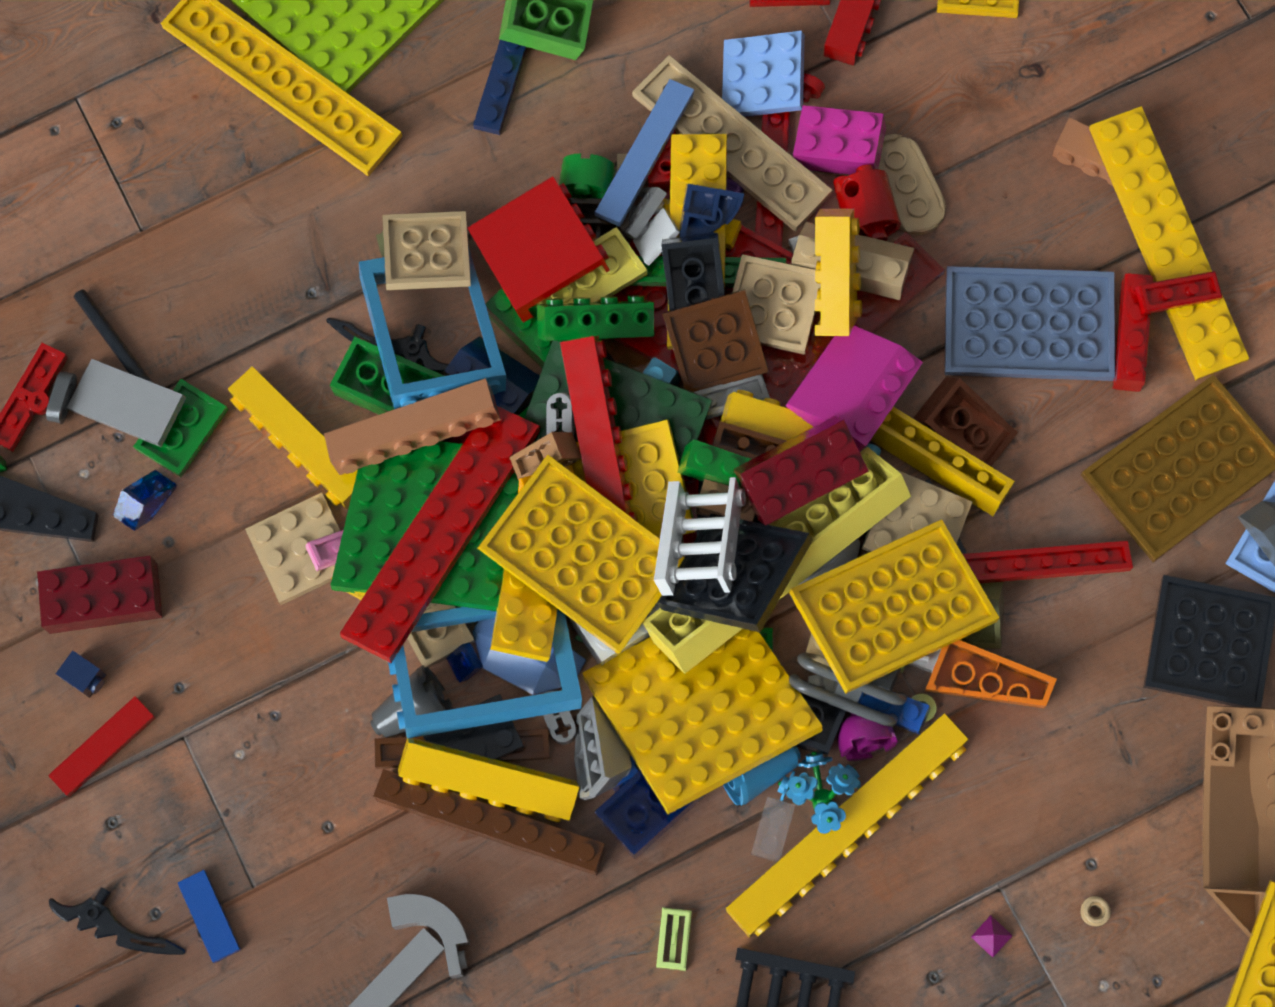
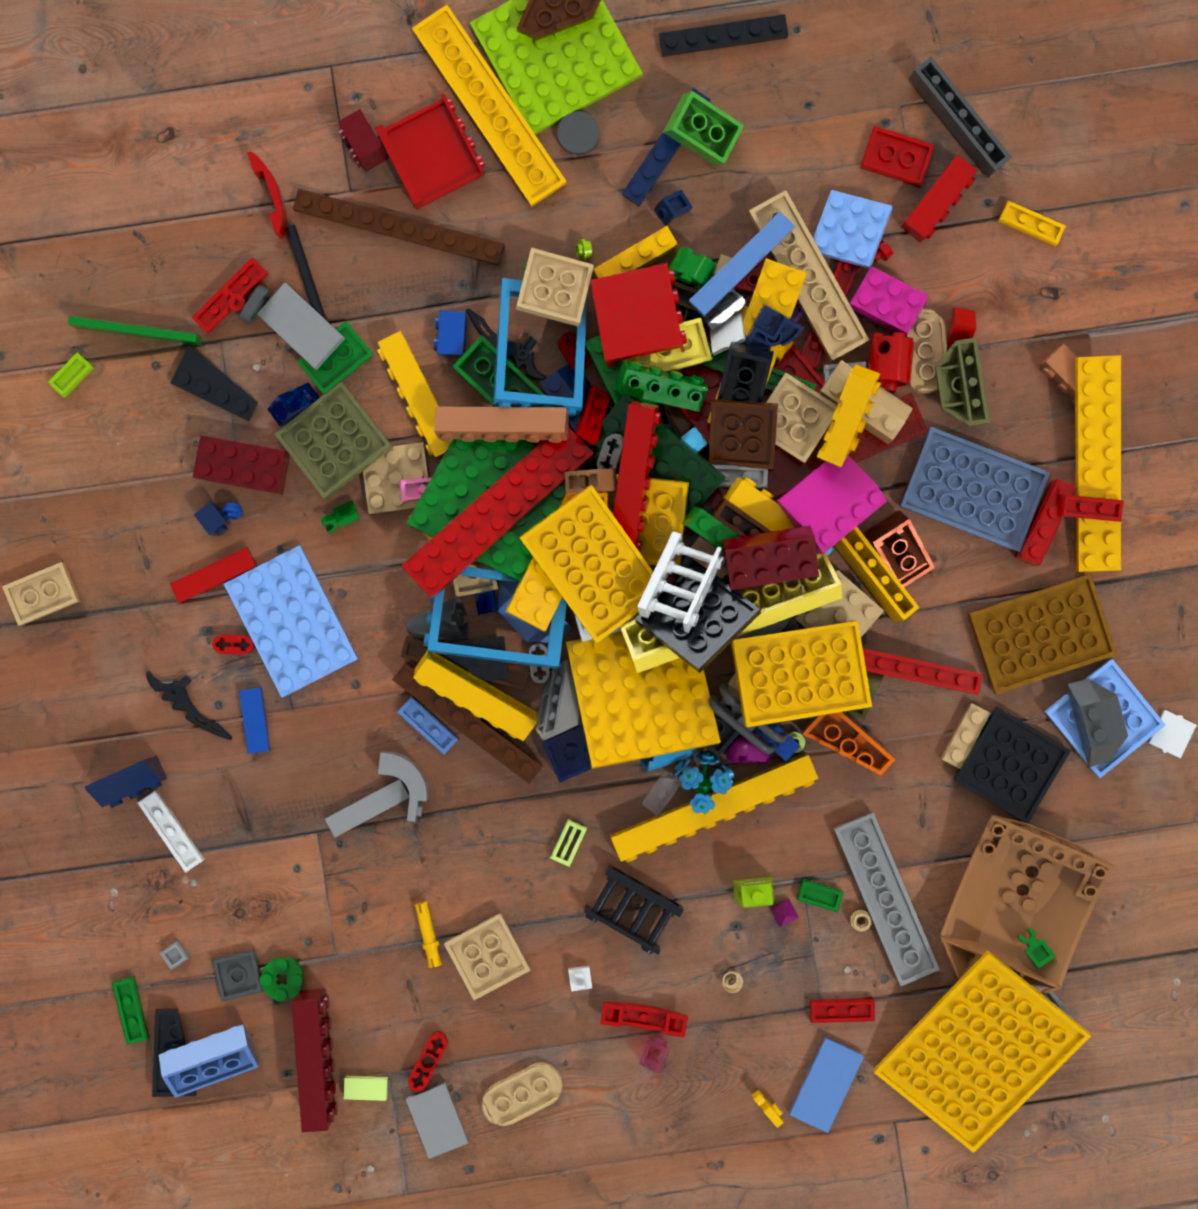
camera: 15 degrees right, 15 degrees up
(26, 240) = (277, 217): none -> red slope
(103, 656) = (232, 511): none -> blue plate
(139, 164) = (359, 135): none -> dark red brick
(152, 819) = (233, 649): none -> red beam
(208, 525) = (333, 440): none -> olive plate
(213, 251) = (398, 227): none -> reddish brown plate
(220, 772) = (291, 621): none -> light blue plate
(227, 153) = (431, 152): none -> red panel
(246, 615) = (342, 516): none -> green plate
(316, 351) = (451, 334): none -> blue brick
(398, 75) = (578, 133): none -> dark grey tile
(439, 846) = (427, 725): none -> medium blue tile
(448, 201) = (584, 249): none -> lime plate
(466, 320) = (570, 350): none -> red beam
(522, 384) = (592, 415): none -> red plate
(533, 169) = (639, 255): none -> yellow brick
(539, 120) = (672, 207): none -> dark blue bracket
(939, 918) = (754, 892): none -> lime torso
(941, 146) = (961, 326): none -> red slope
(964, 201) = (962, 383): none -> olive wedge
(1029, 896) = (819, 895): none -> green tile
(1118, 871) = (886, 899): none -> light grey plate
(1137, 626) = (965, 735): none -> tan plate

